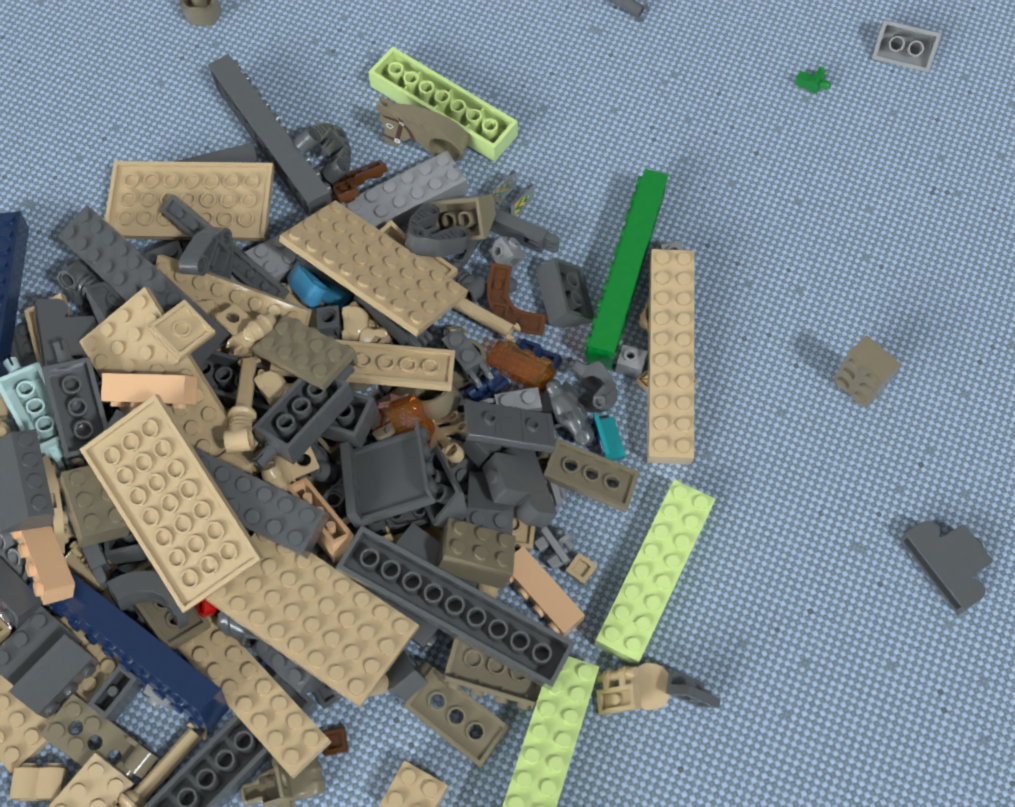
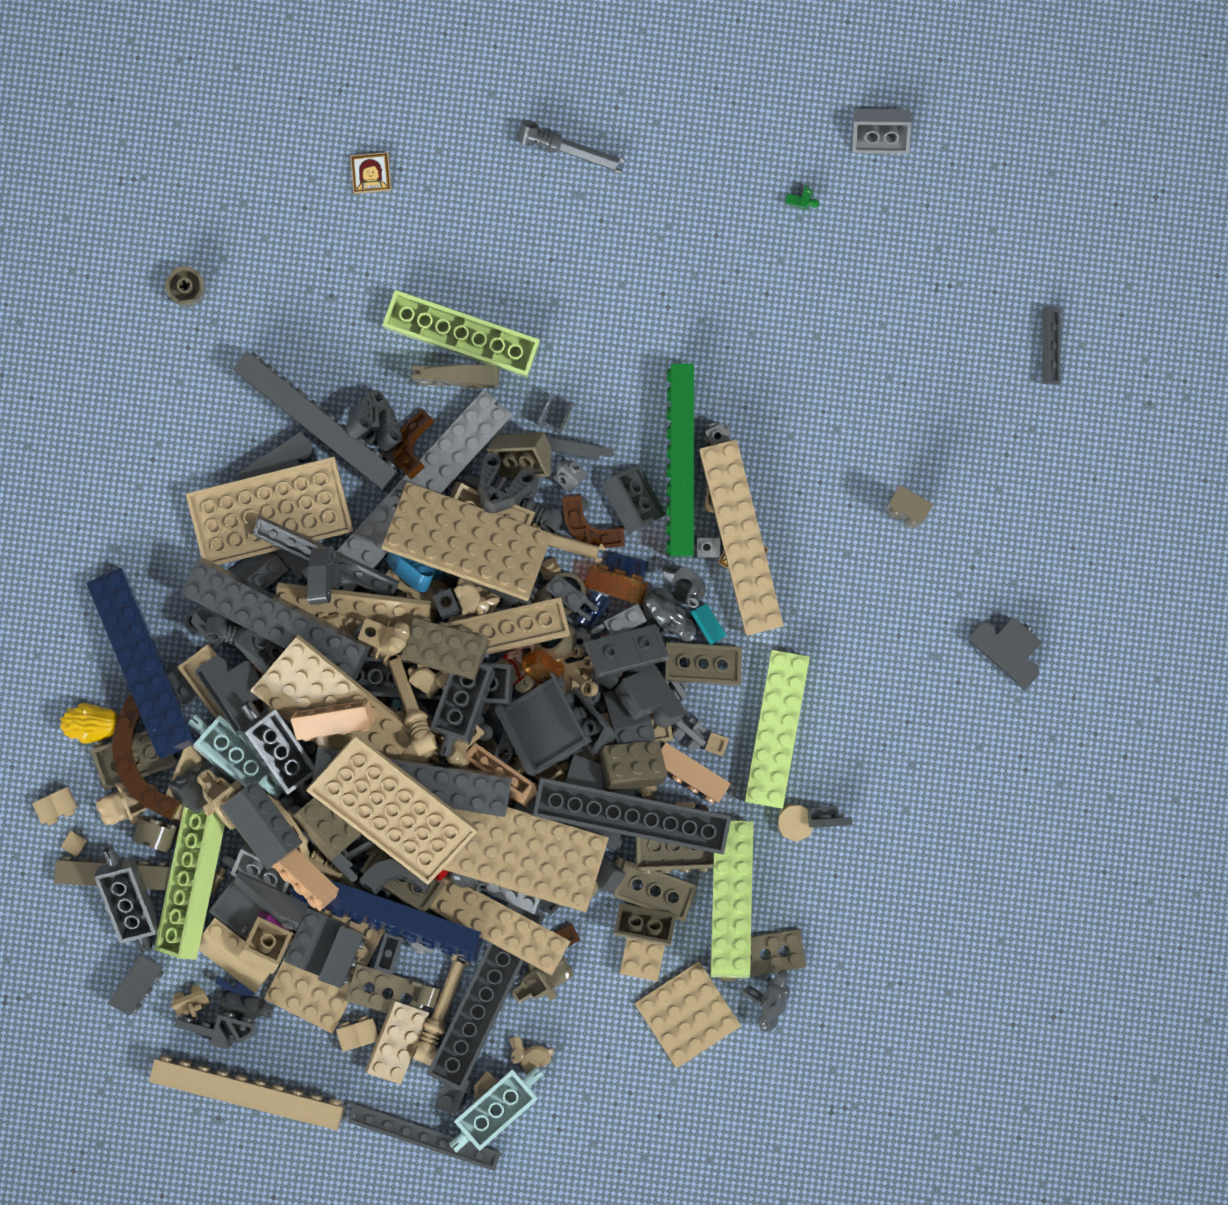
camera: 15 degrees left, 20 degrees up
(181, 330) = (342, 665): tan tile -> none
(430, 752) = (645, 924): none -> dark tan slope
(620, 698) = (774, 840): tan plate -> none

